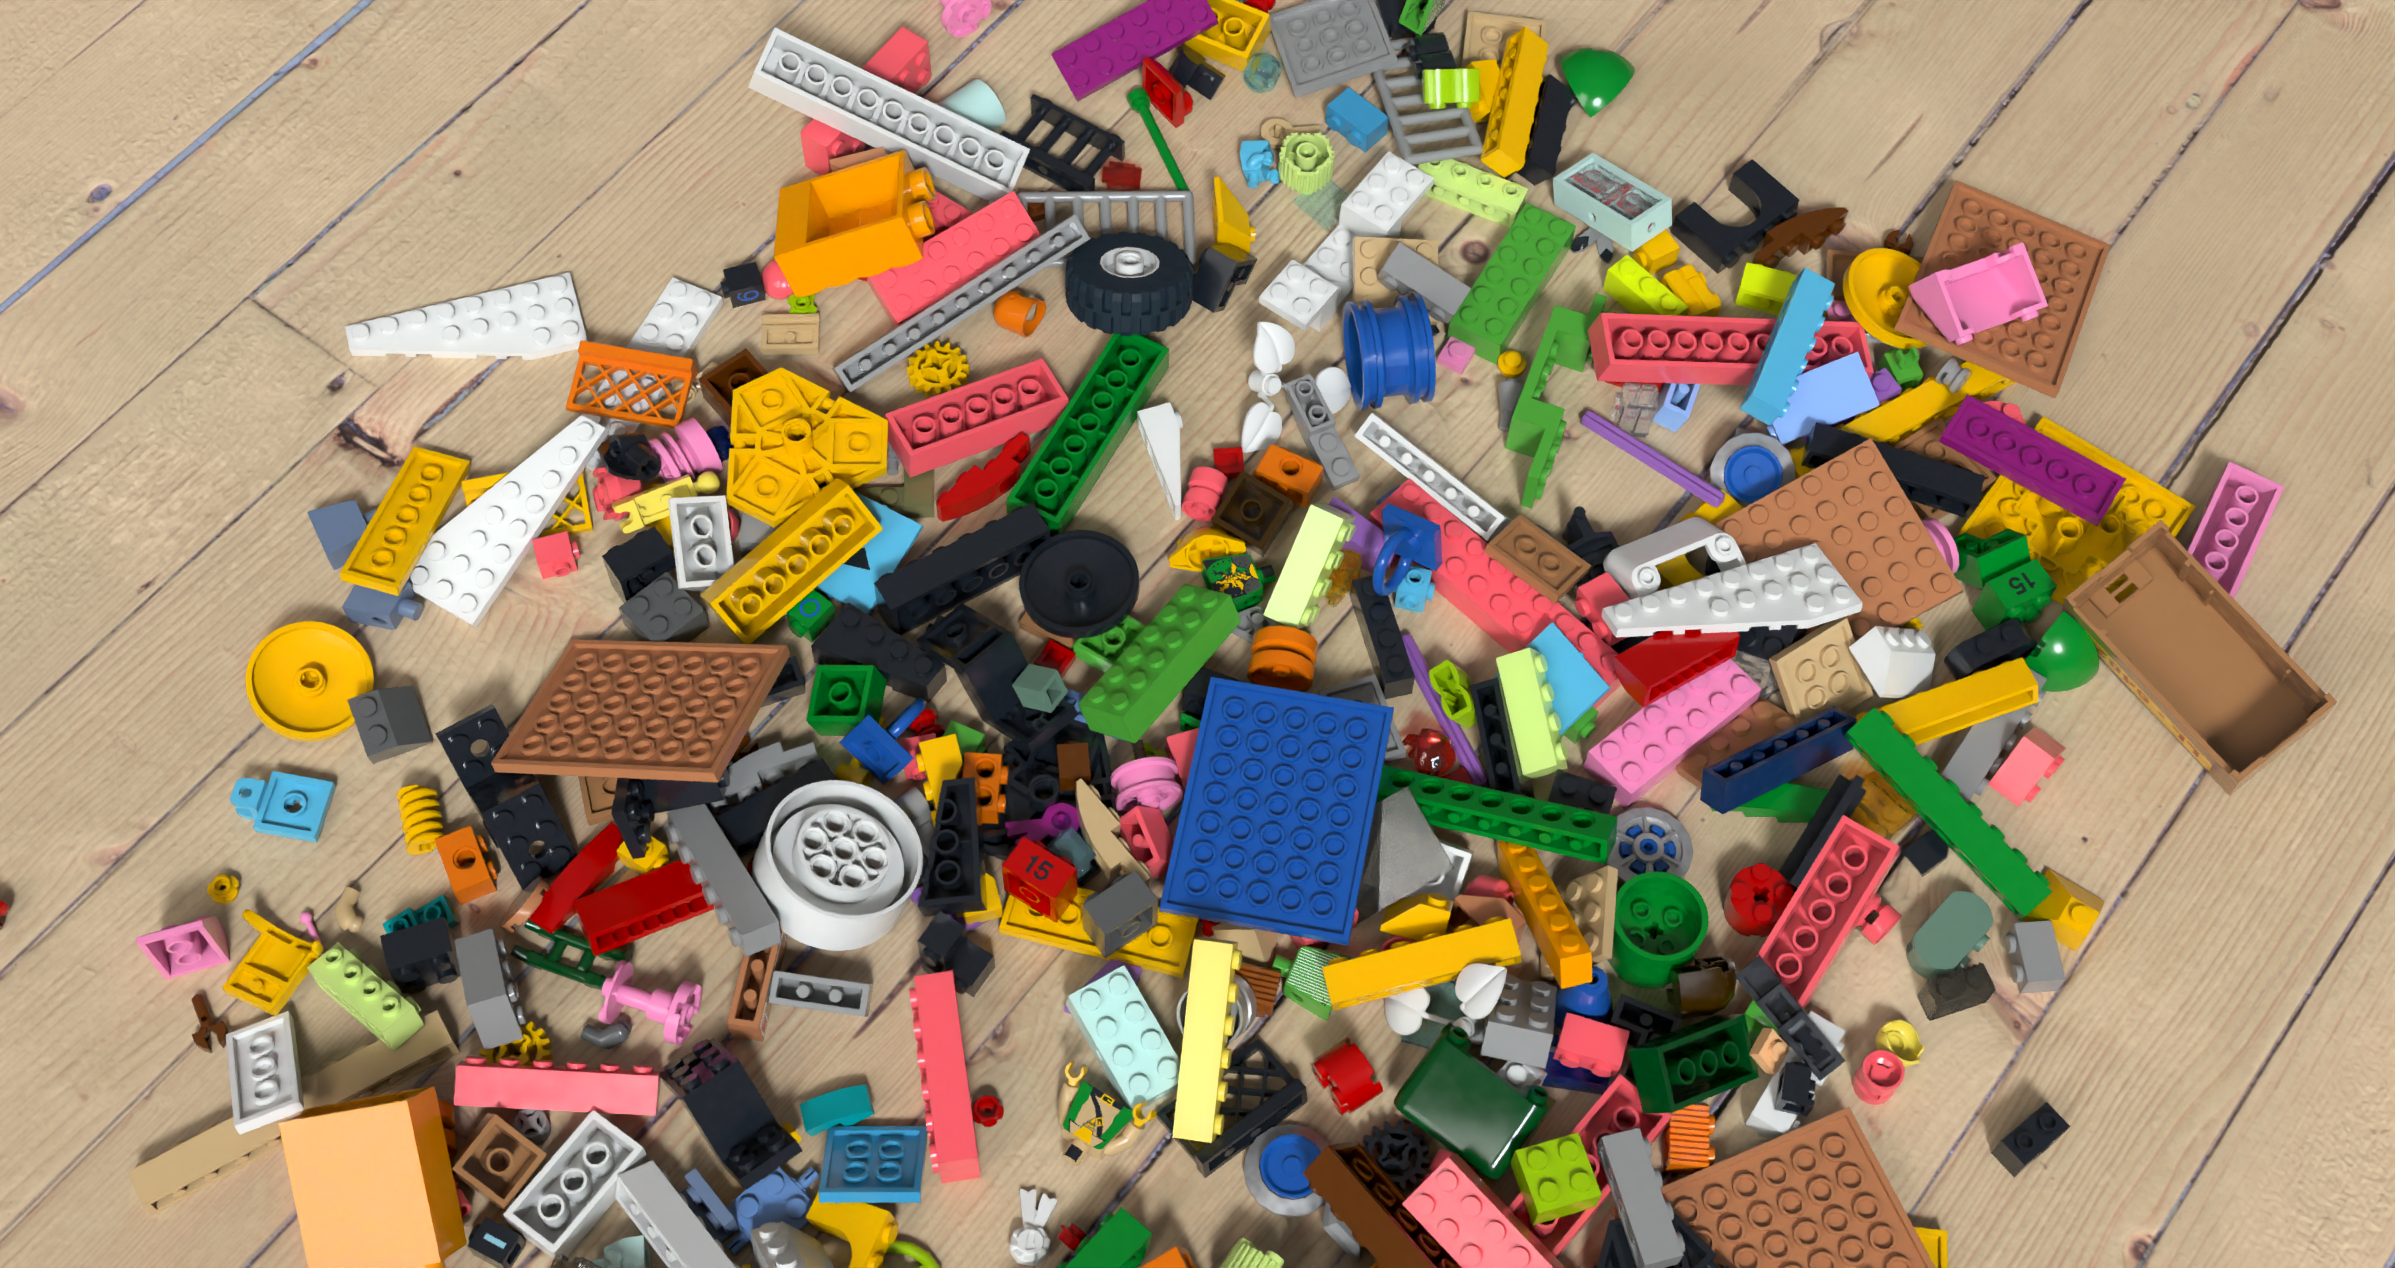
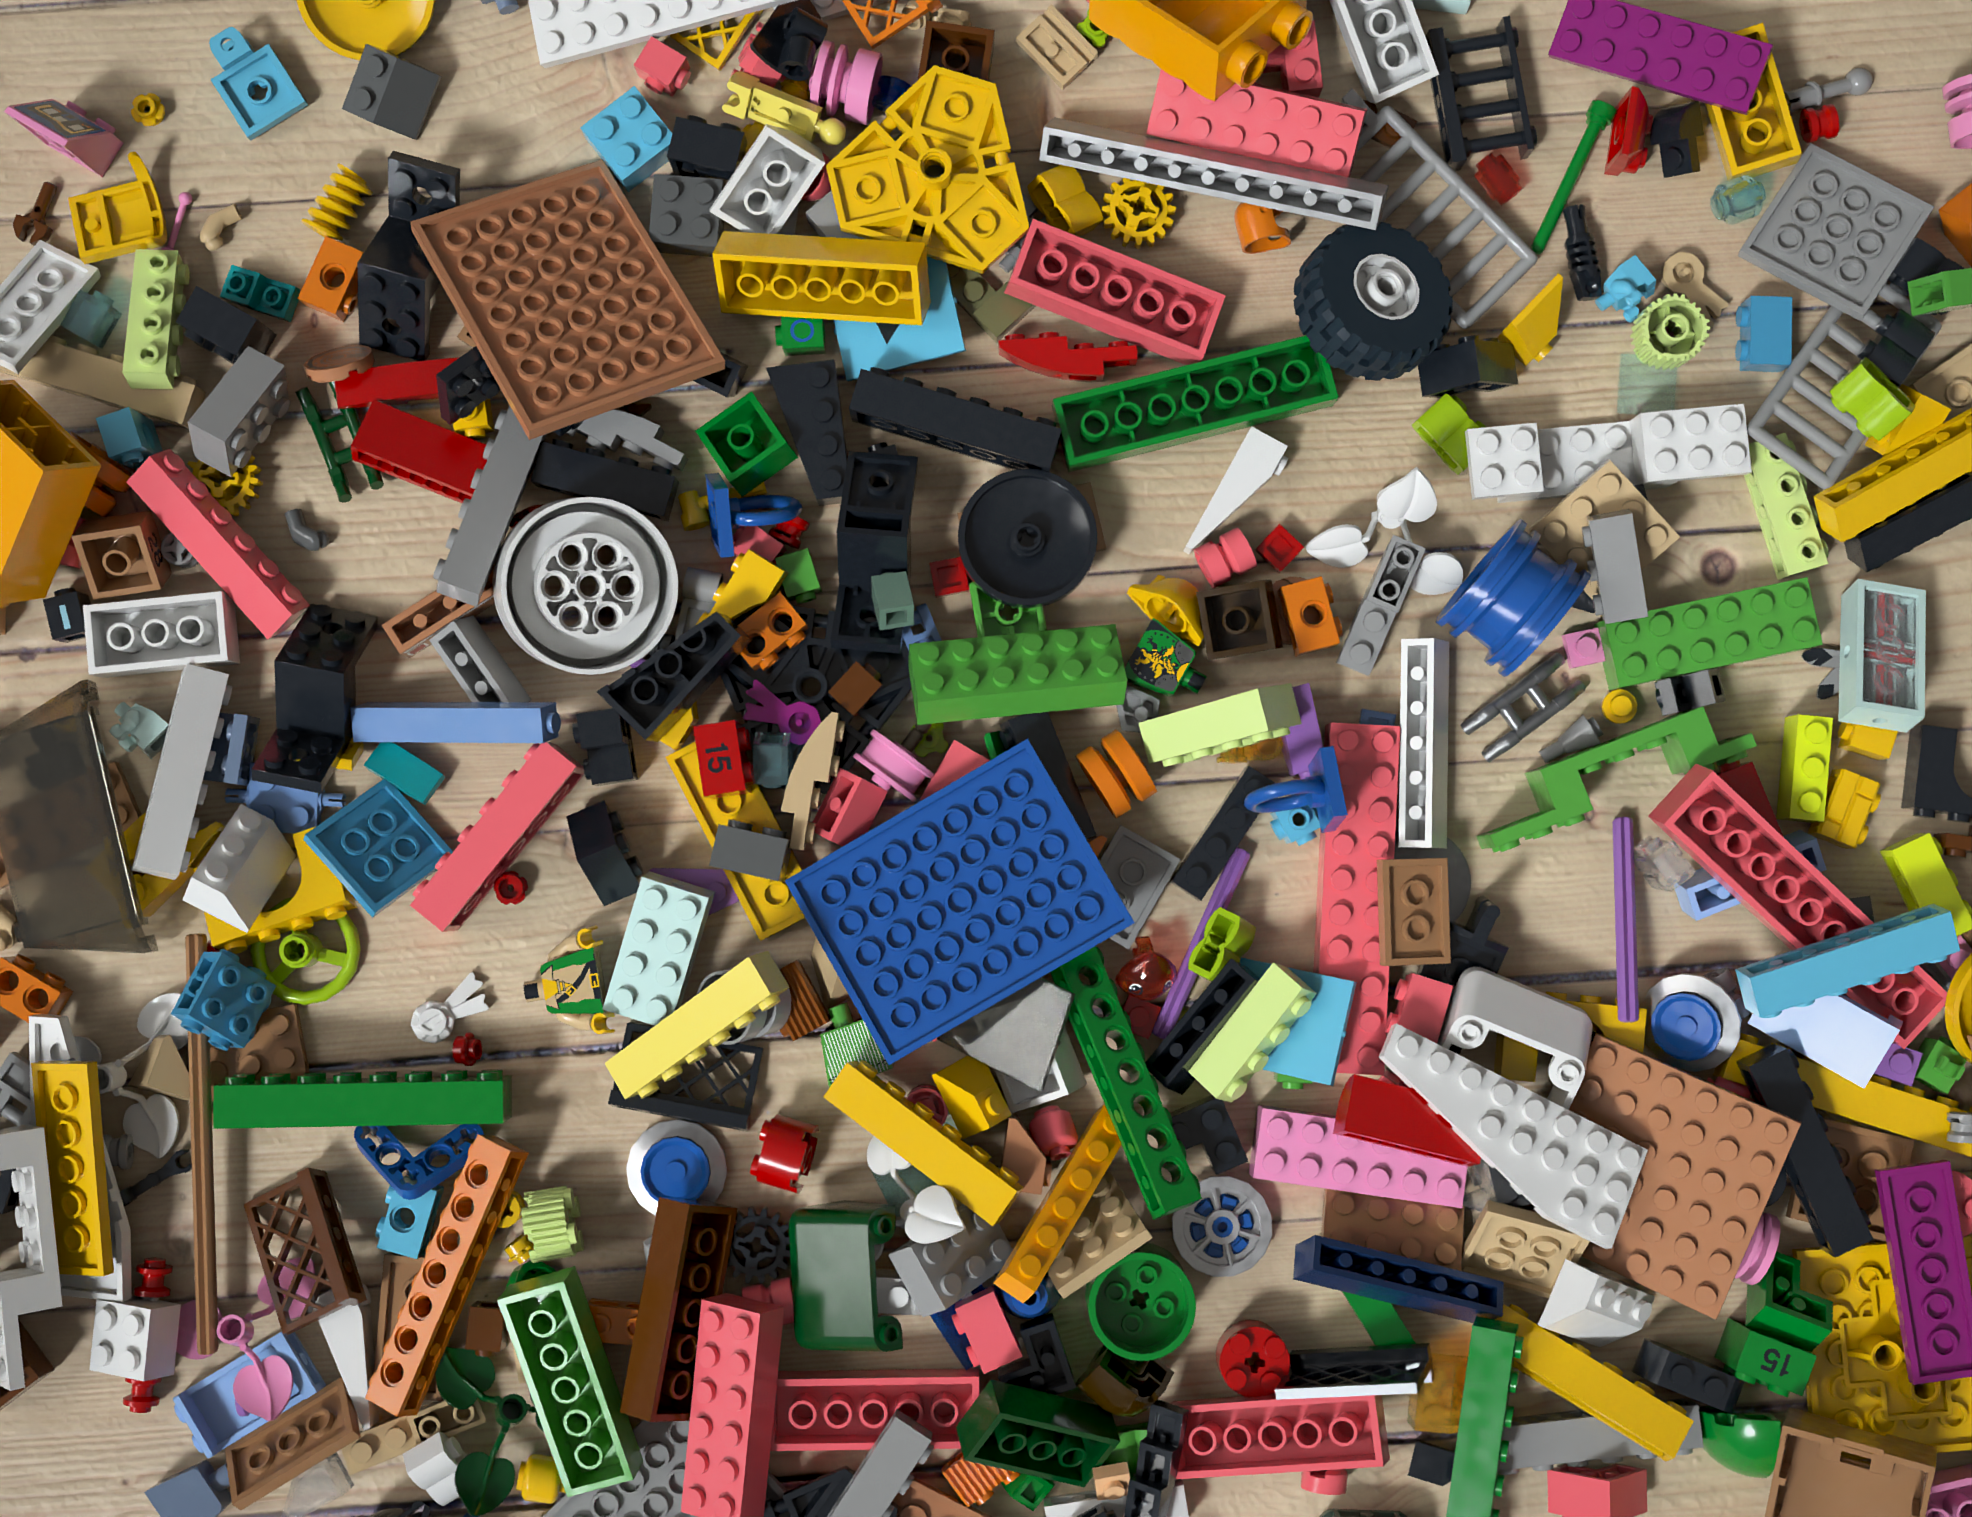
camera: 50 degrees right, 25 degrees up
(314, 1045) = (92, 317): none -> clear light blue brick
(420, 1073) = (129, 437): none -> medium azure brick
(579, 608) = (629, 138): none -> medium azure brick
(660, 1006) = (355, 557): bright pink piece -> none
(841, 1032) = (455, 722): none -> medium blue brick
(884, 397) = (1064, 201): none -> yellow brick
(1026, 1017) = (604, 852): none -> black brick
(1208, 168) = (1582, 256): none -> black hinge
(1242, 315) = (1444, 431): none -> lime brick
(1450, 422) = (1503, 703): none -> flat silver piece
(1535, 319) = (1689, 691): none -> brick
(1555, 1178) = (832, 1404): lime brick -> none
(1728, 1124) = (1029, 1490): none -> green slope

